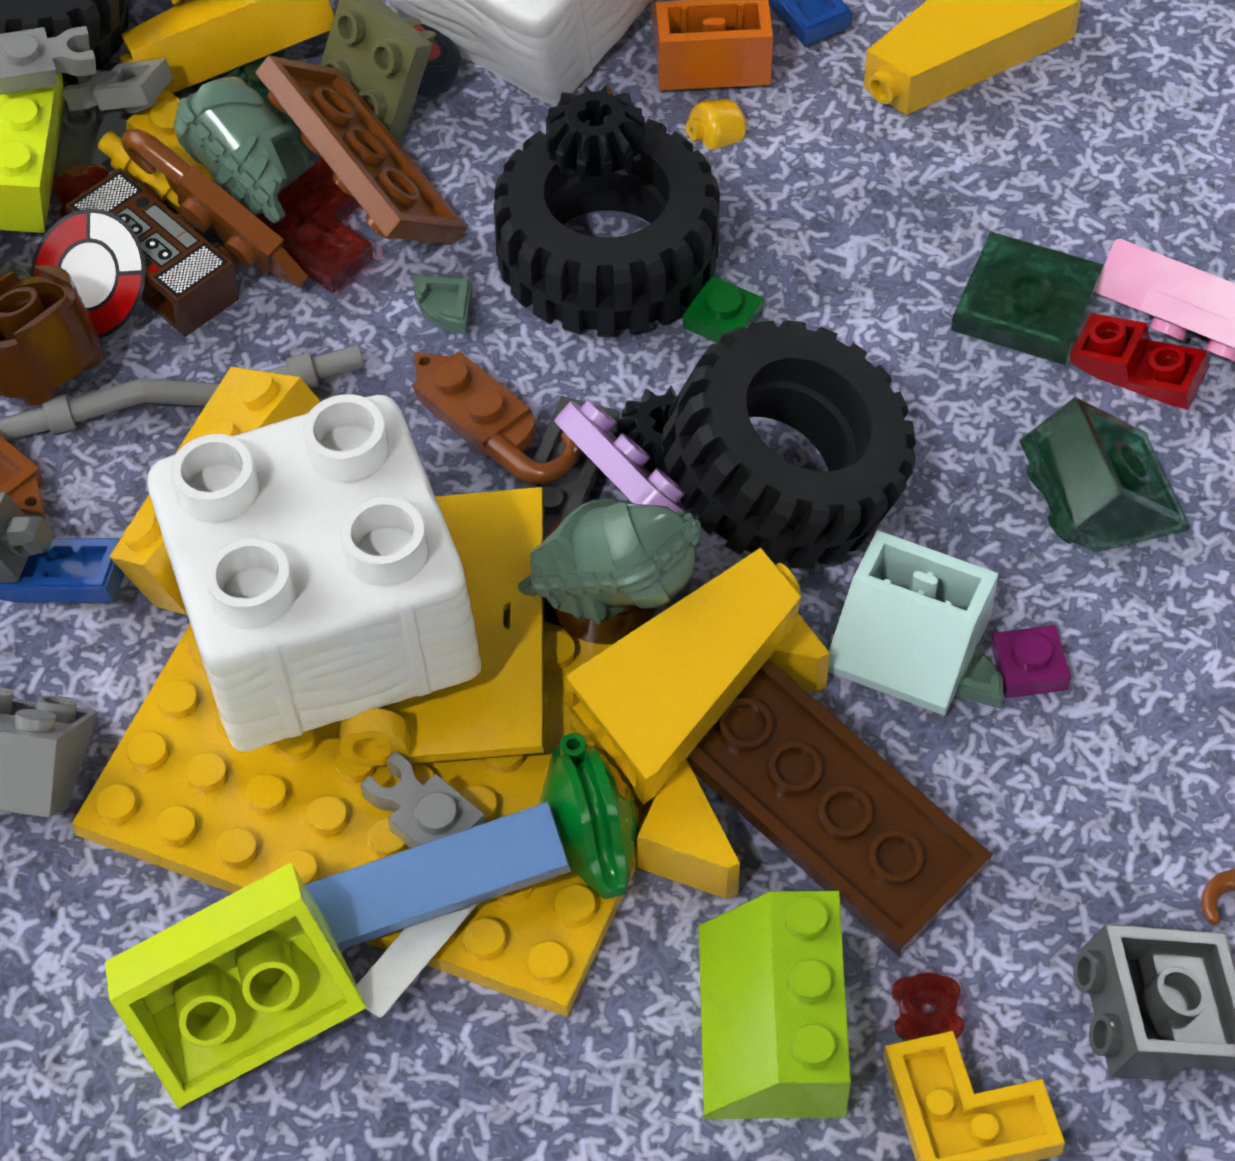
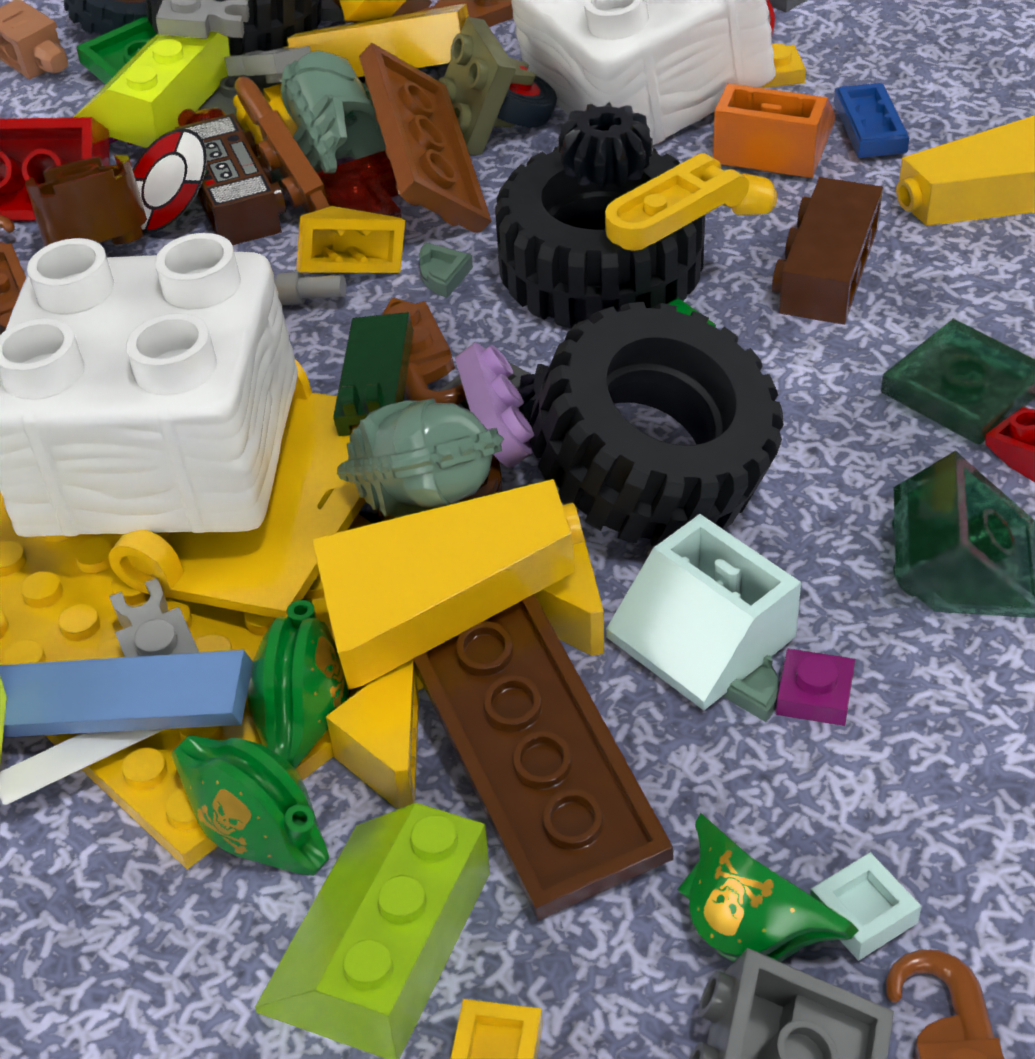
camera: 25 degrees right, 10 degrees down
(346, 300) = (349, 242): none -> yellow slope
(478, 460) = (373, 367): none -> dark green hinge
(608, 937) = (251, 803): none -> green hat
(695, 187) = (672, 201): none -> yellow plate
(834, 177) = (828, 250): none -> reddish brown brick
(930, 989) = (542, 960): clear red plate -> none
(1073, 885) = (749, 906): none -> green hat
(1162, 851) = (871, 901): none -> light aqua plate

